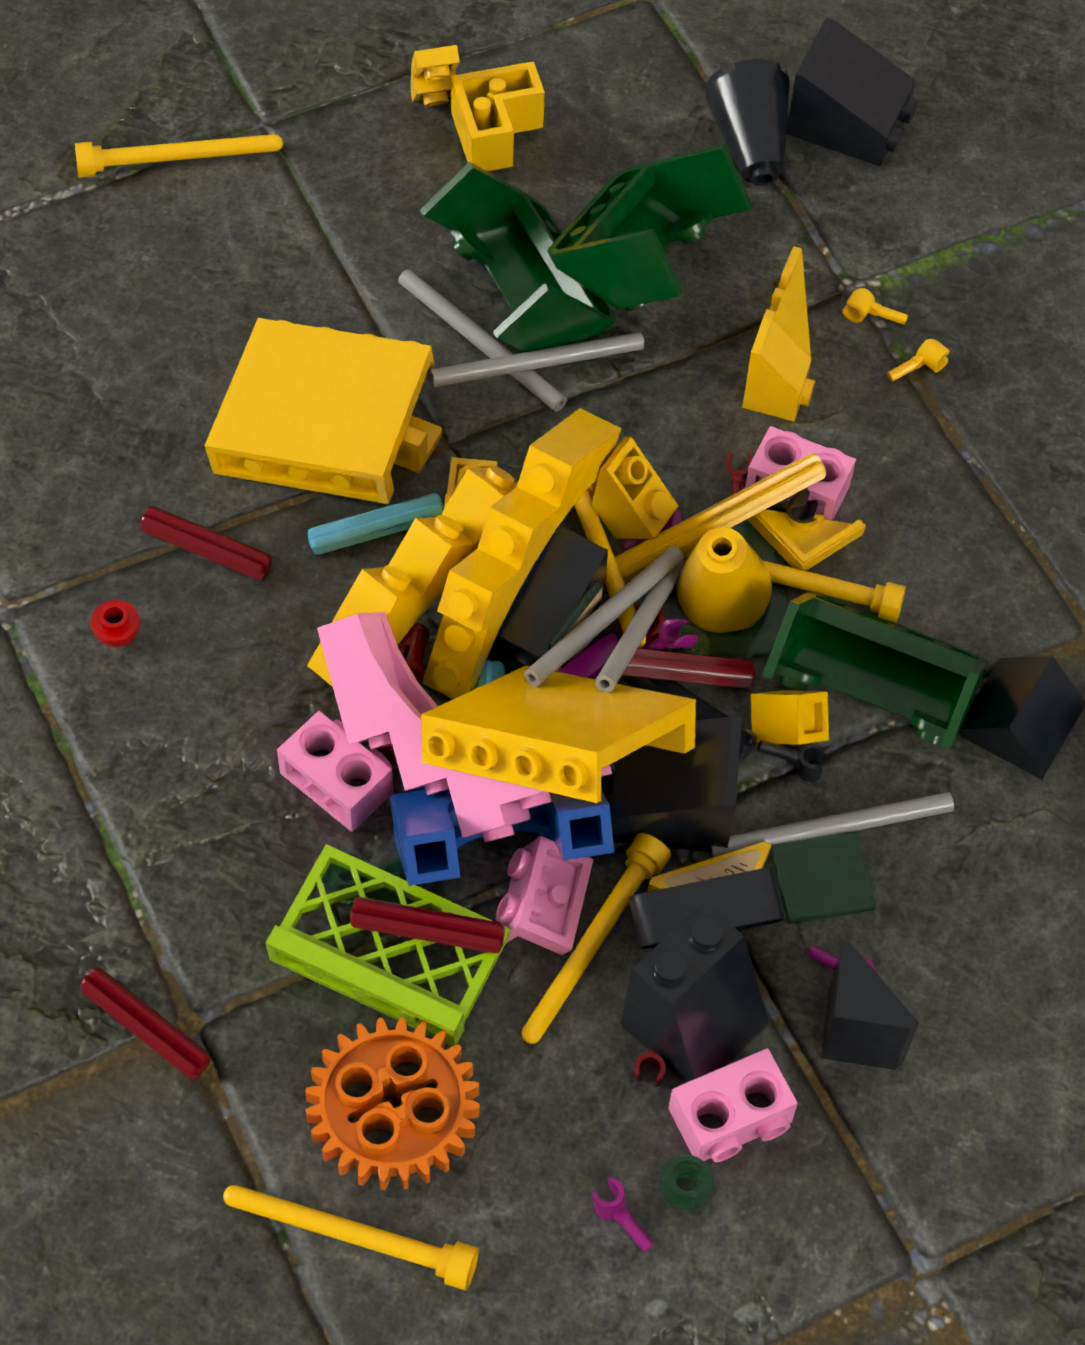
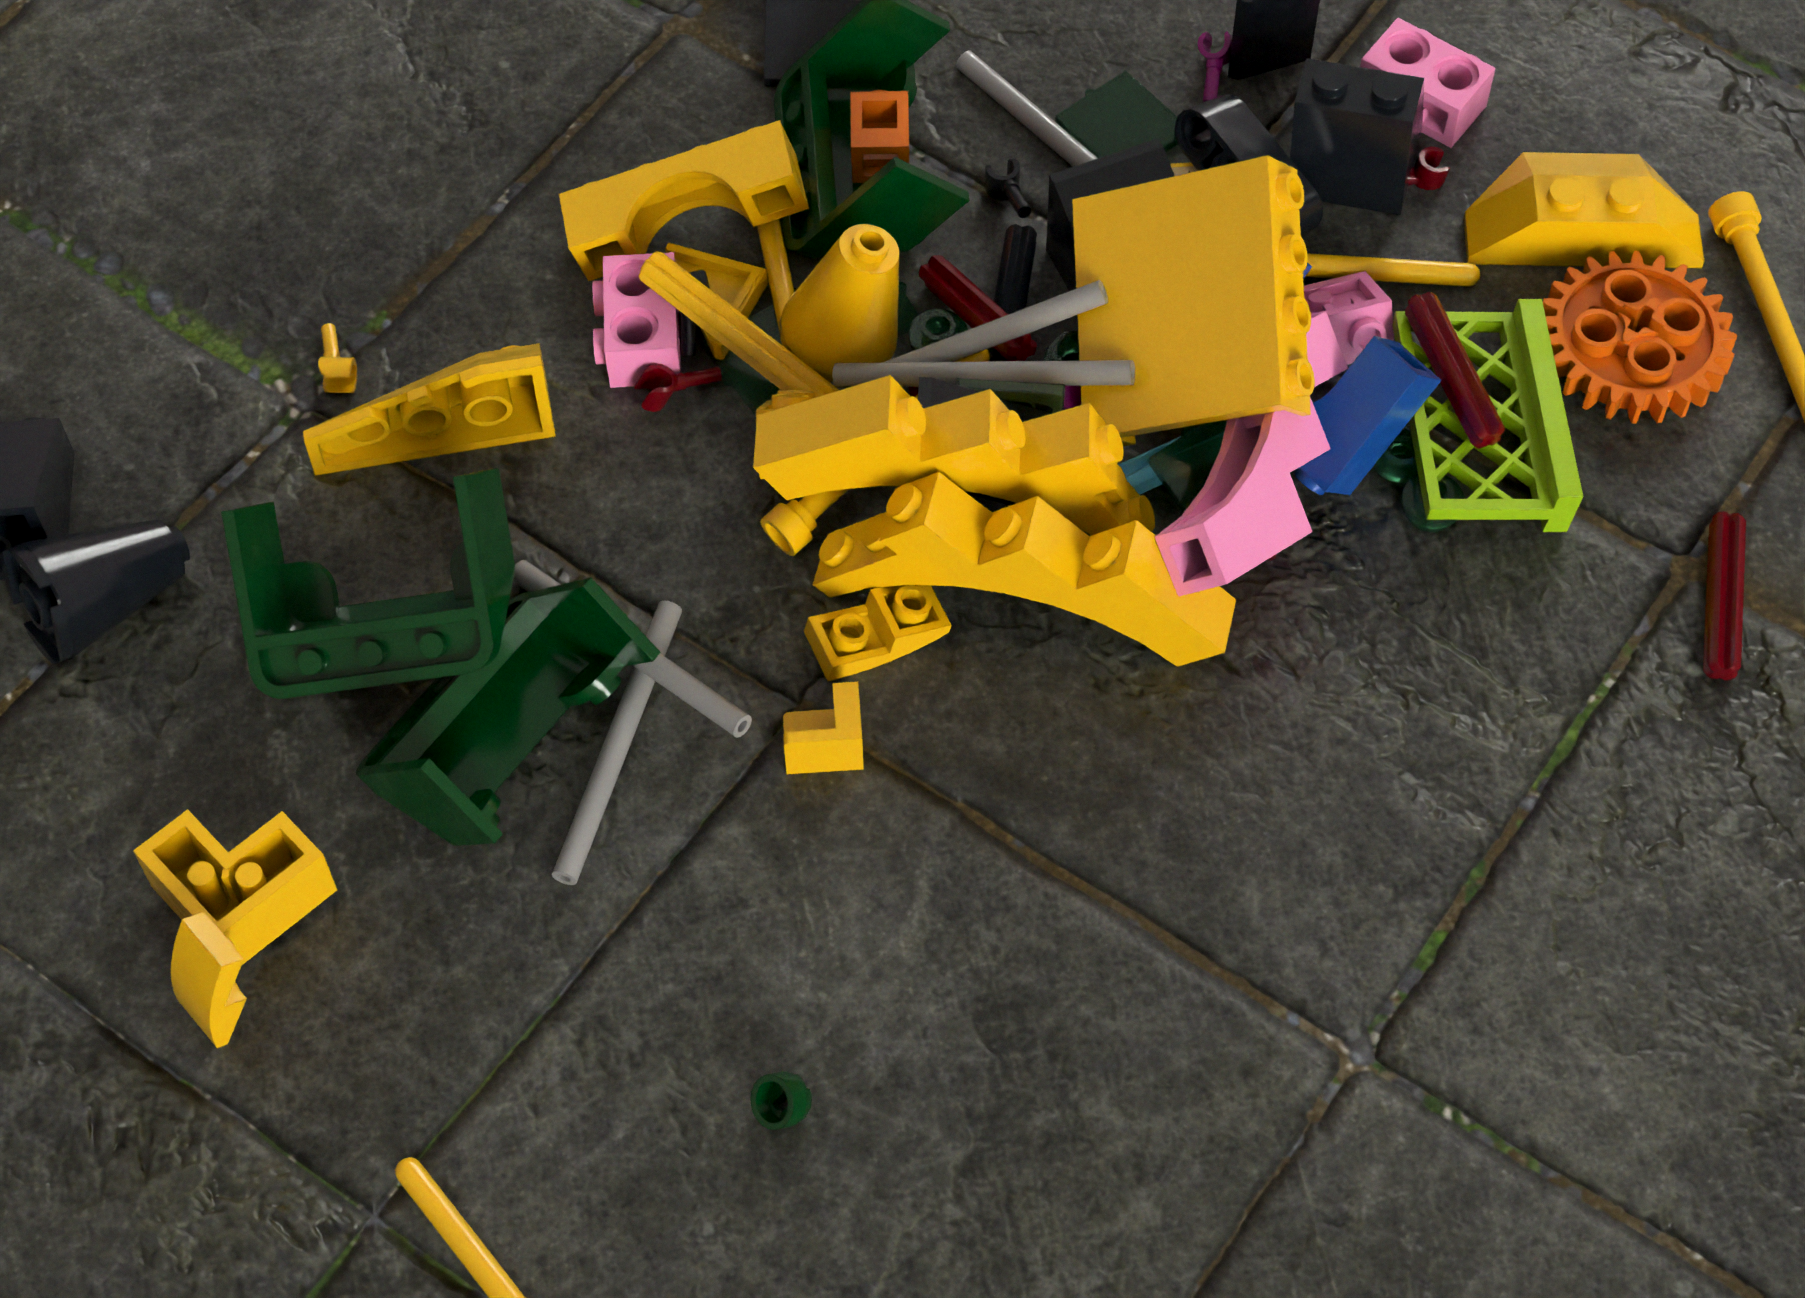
camera: 115 degrees left, 0 degrees up
(117, 633) = (1296, 919): red plate -> none
(186, 307) = (774, 1089): none -> dark green hinge
(206, 543) = (1119, 873): dark red axle -> none
(318, 409) = (854, 826): yellow panel -> none
(327, 777) = (1325, 566): bright pink brick -> none
(373, 524) = (972, 707): medium azure axle -> none
(531, 1153) = (1578, 207): none -> yellow wedge
(617, 1211) = (1584, 129): magenta hand -> none
(670, 637) = (954, 320): magenta hand -> none
(690, 1167) = (1517, 93): clear green plate -> none
(790, 716) = (983, 217): yellow panel -> none
(872, 559) = (622, 213): none -> yellow arch
(884, 682) = (878, 131): none -> orange brick
(930, 353) = (377, 281): yellow hand -> none

